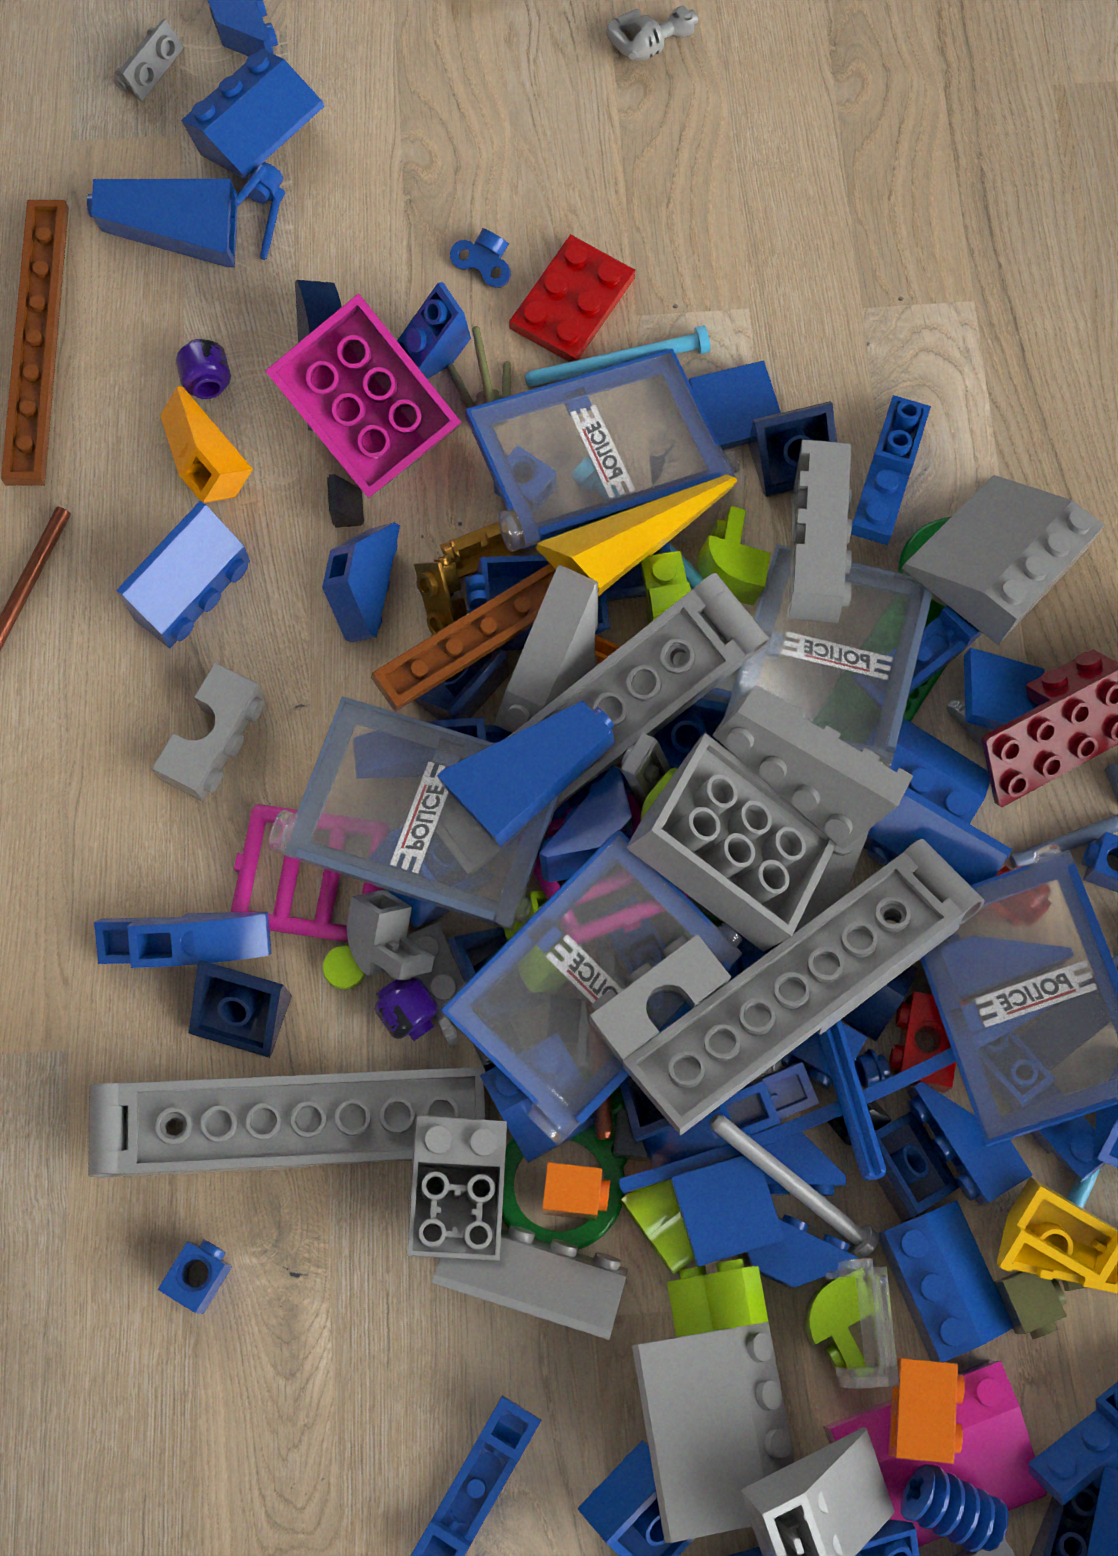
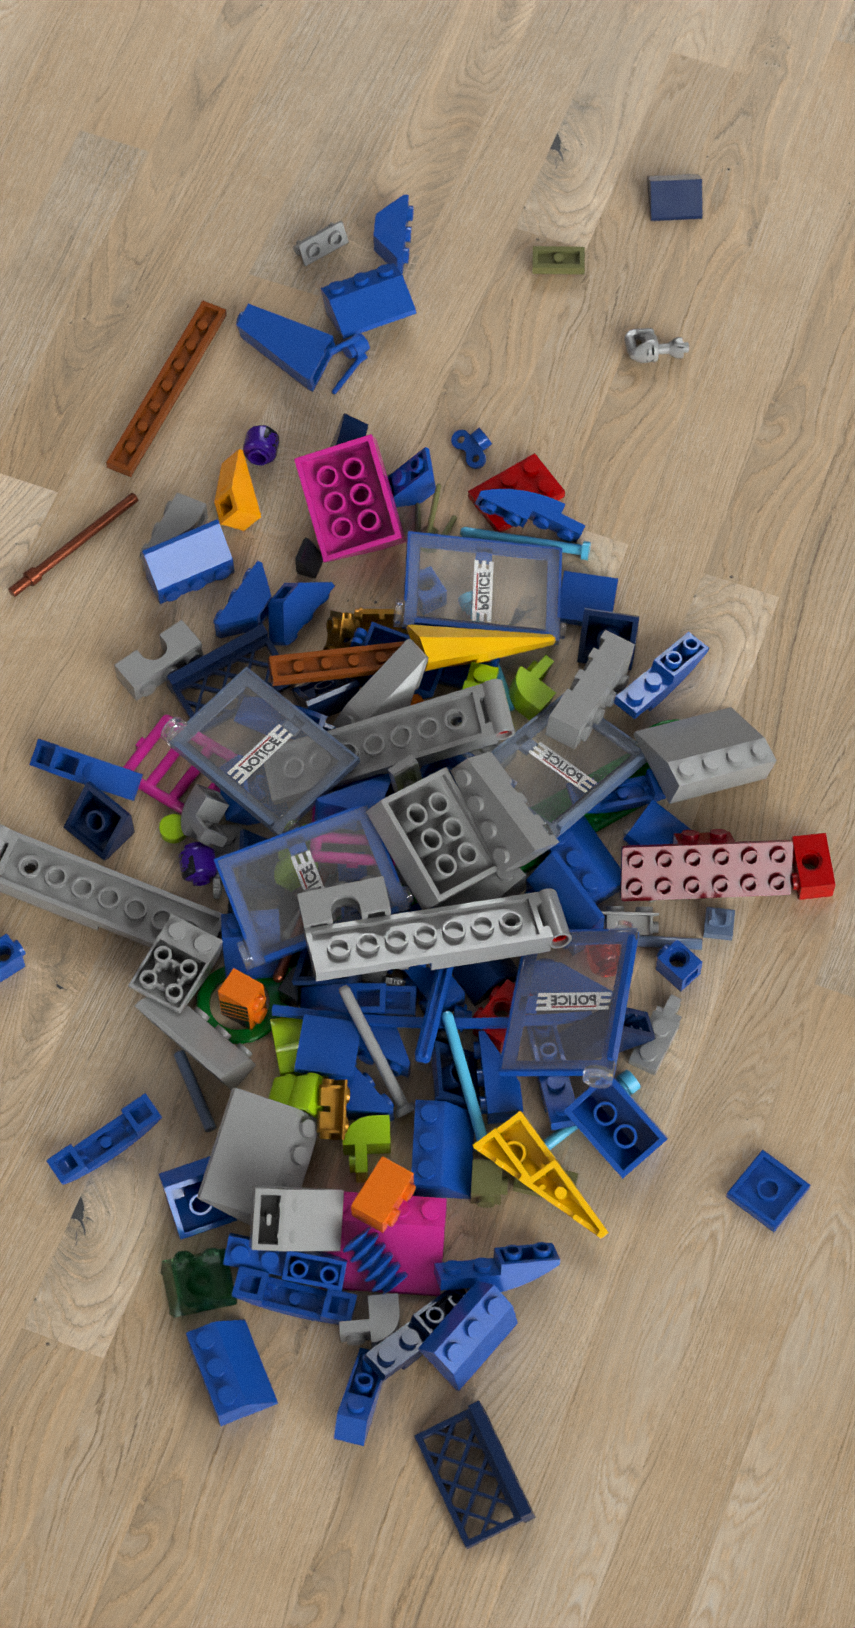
camera: 25 degrees right, 10 degrees down
(145, 518) = (179, 517): none -> light grey slope
(291, 699) = (215, 662): none -> dark blue fence
(292, 602) = (246, 605): none -> blue slope
(528, 770) = (332, 748): blue slope -> none
(568, 1354) = (195, 1091): none -> sand blue bar
(600, 312) = (521, 505): none -> blue slope
(777, 1284) = (333, 1123): none -> pearl gold hinge
(876, 1327) = (360, 1160): clear panel -> none
(936, 1171) = (464, 1075): none -> medium azure bar
(1034, 820) = (641, 919): none -> light grey hinge

